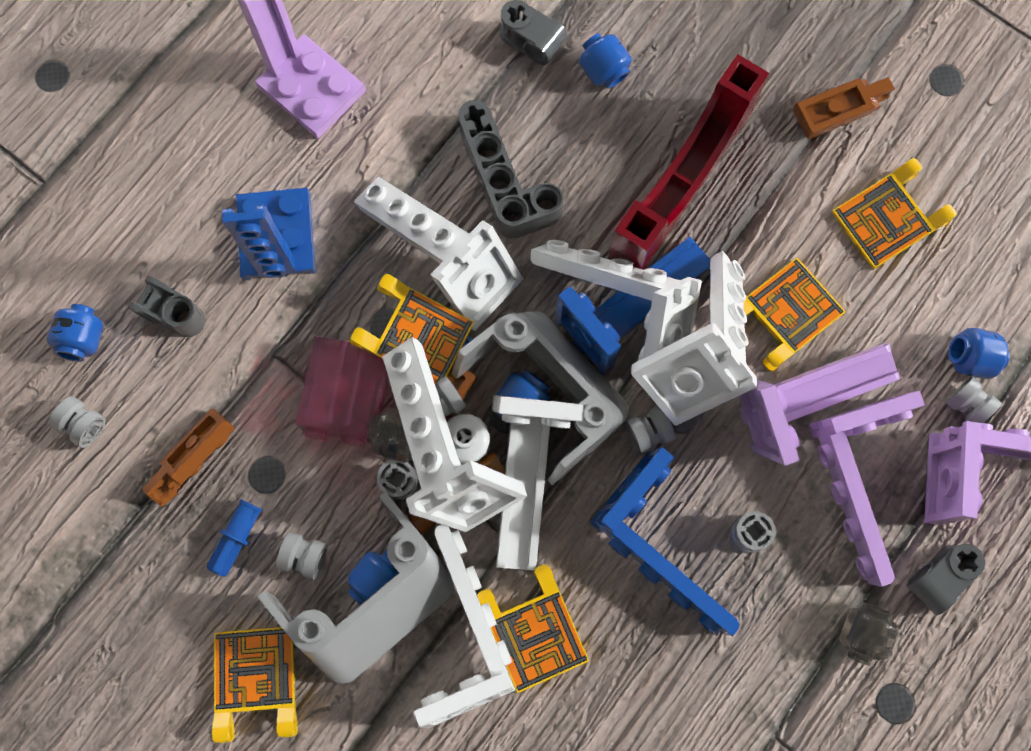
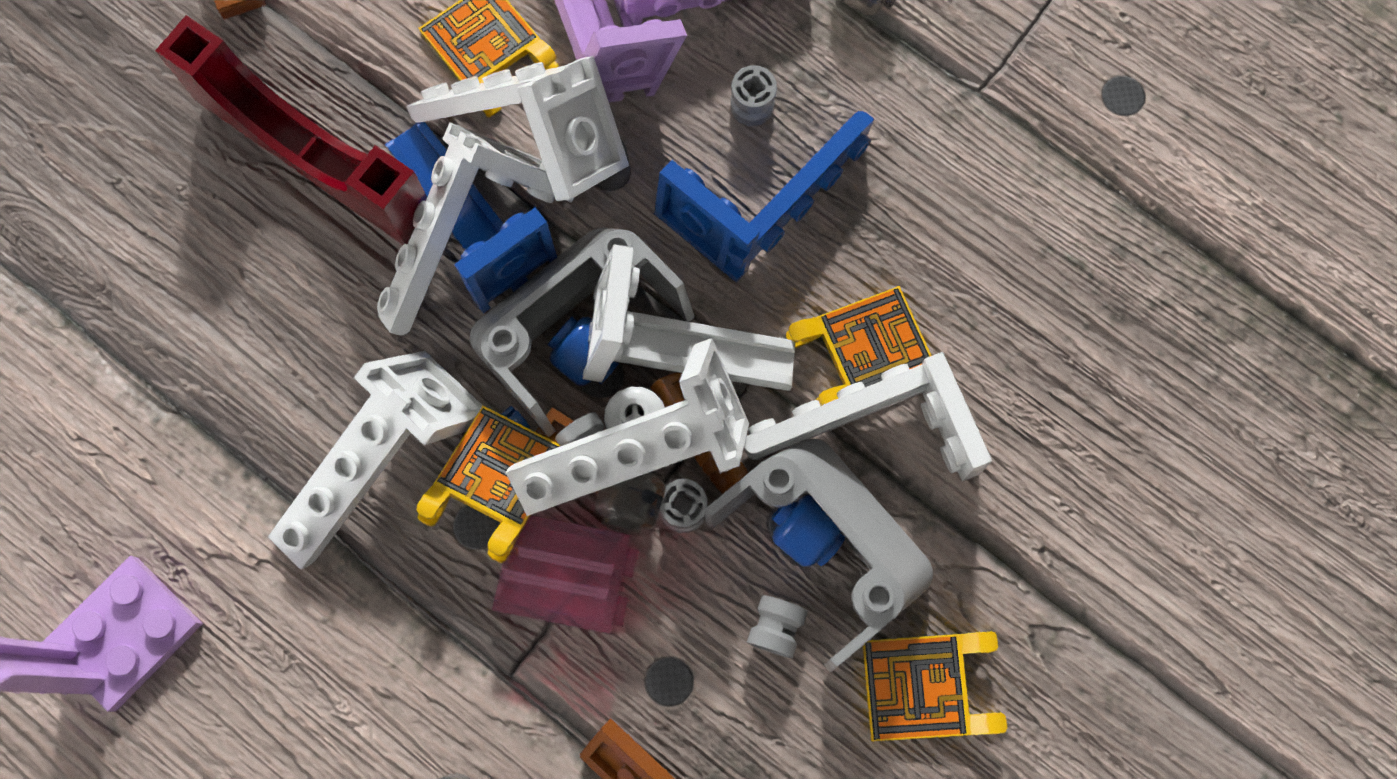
camera: 90 degrees left, 0 degrees up
(233, 538) = (753, 718): blue axle -> none
(273, 232) = (338, 677): blue bracket -> none
(500, 169) = (272, 371): dark grey beam -> none
(532, 33) = (80, 327): dark grey piece -> none
(605, 60) = (132, 235): blue head -> none
(650, 430) = (628, 202): light grey wheel -> none

